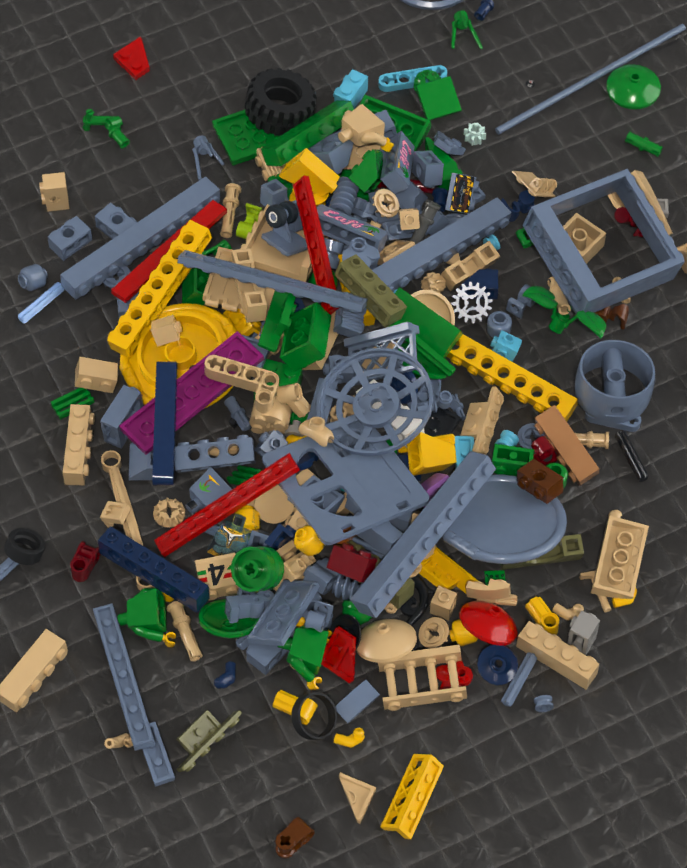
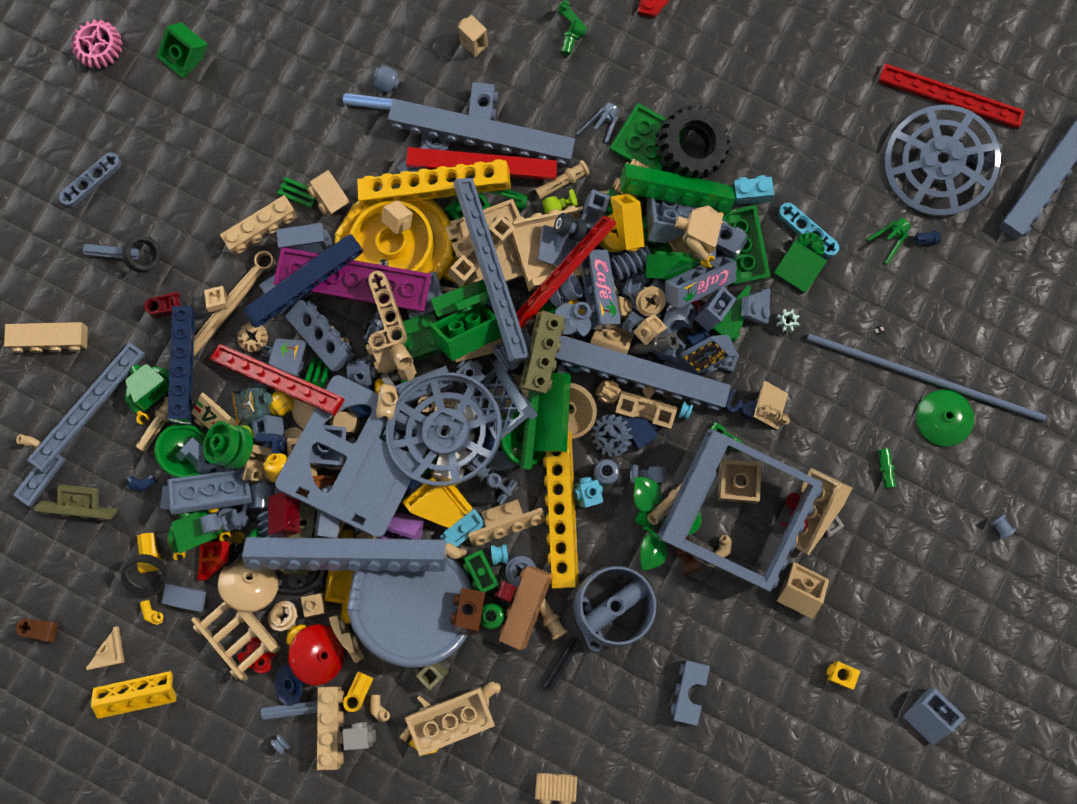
camera: 55 degrees right, 20 degrees up
(78, 236) = (450, 85): sand blue brick -> none

